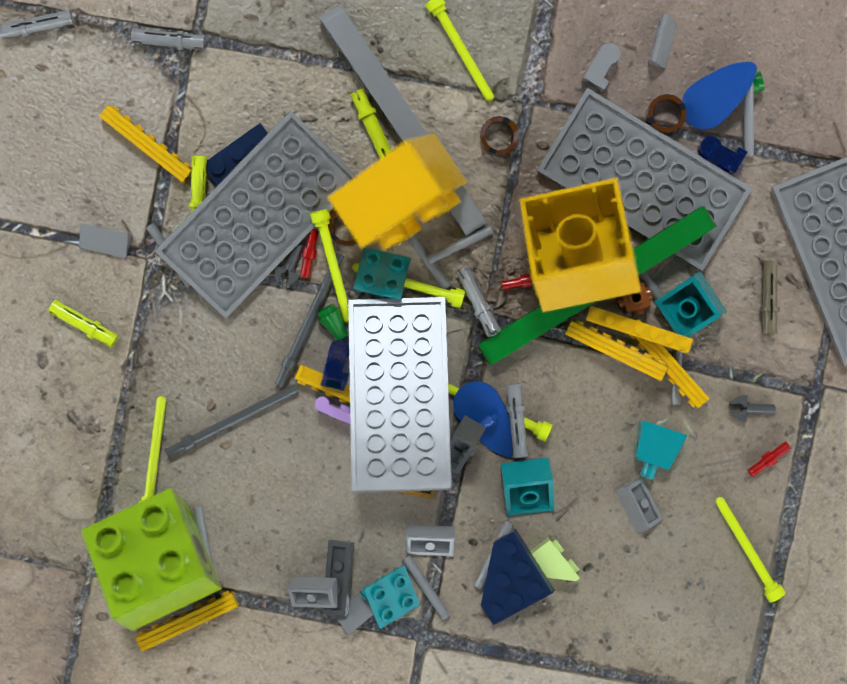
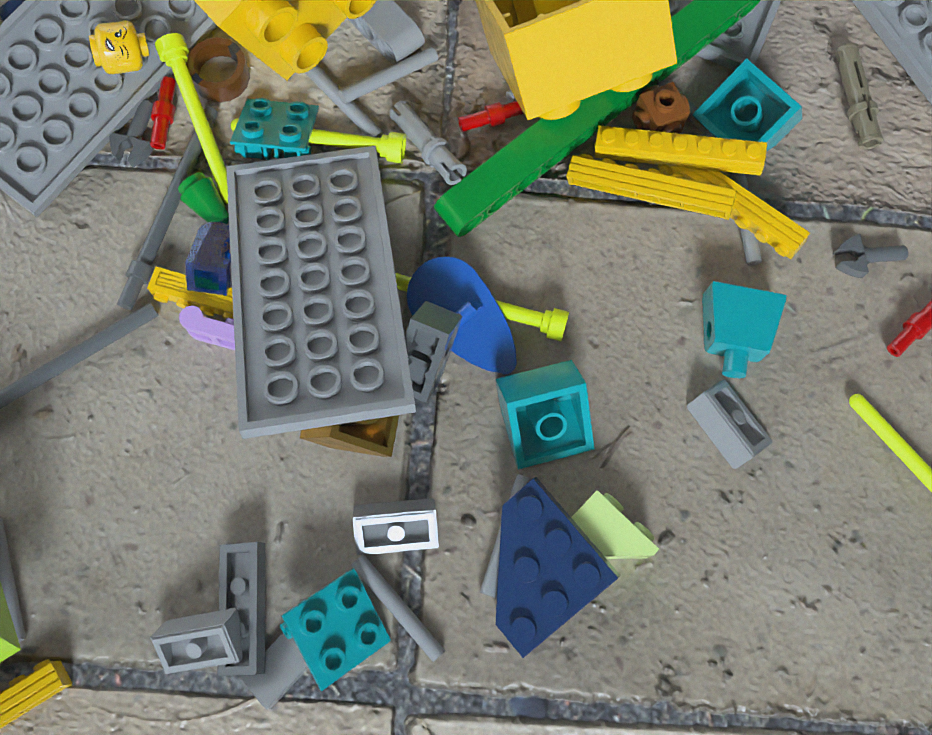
camera: 10 degrees left, 15 degrees down
(287, 216) = (118, 47): none -> yellow head
(516, 414) = (500, 264): light grey pin -> none

